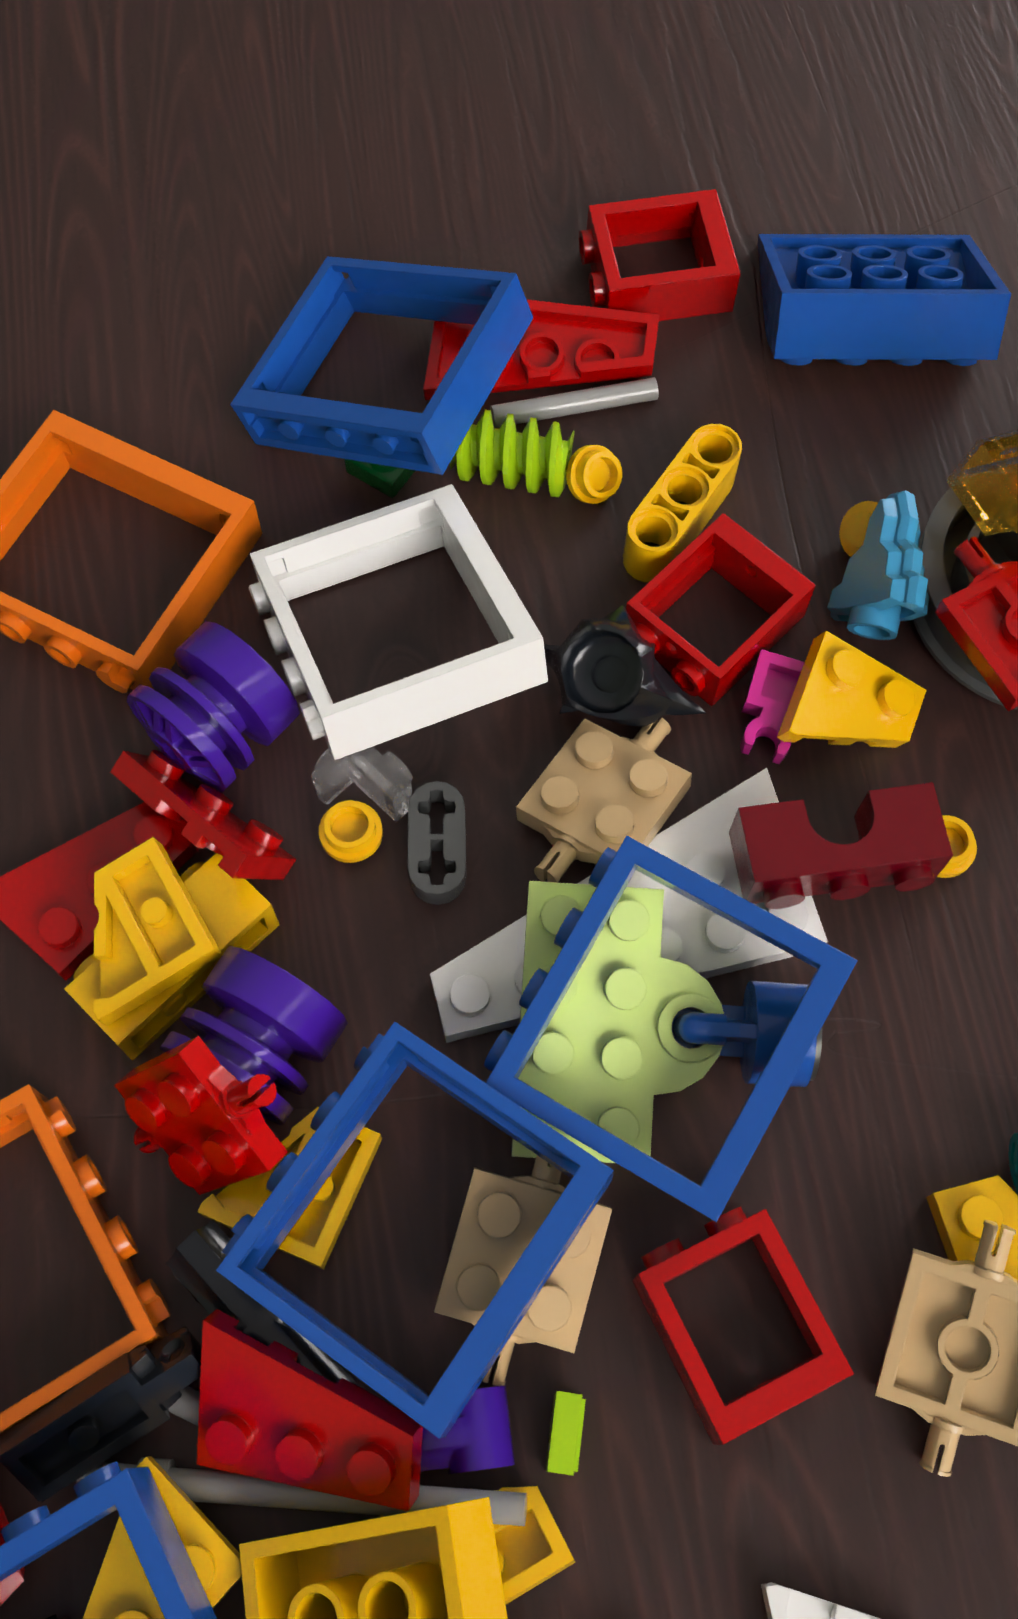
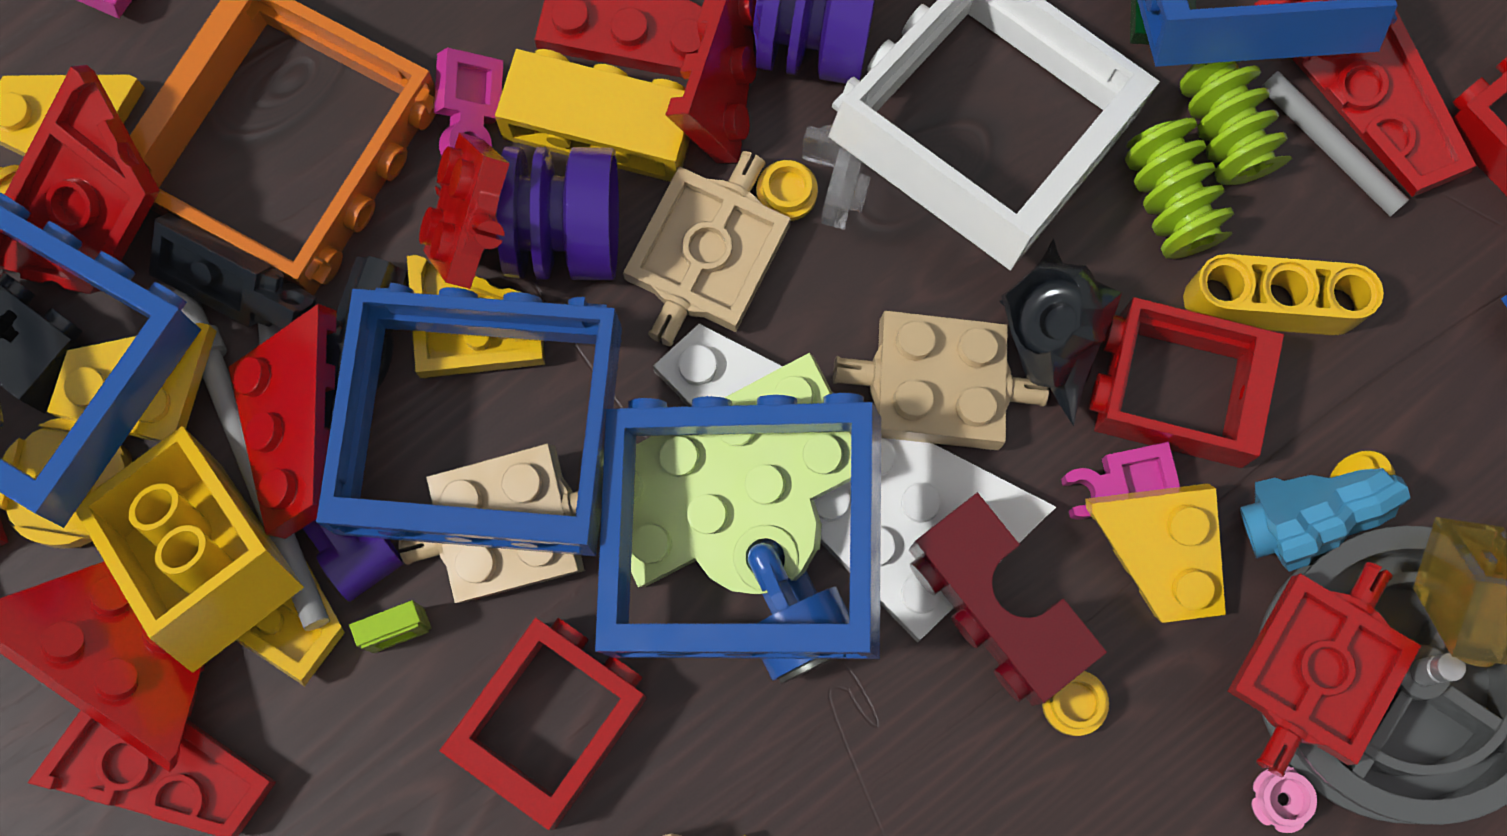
camera: 60 degrees right, 10 degrees up
(73, 1064) = (468, 92): none -> dark pink plate
(145, 930) = (592, 77): yellow wing -> none
(364, 928) = (707, 248): none -> tan plate
(451, 842) = (812, 253): dark grey beam -> none
(546, 523) = (1177, 188): none -> lime piece
(593, 474) = (1262, 200): yellow plate -> none

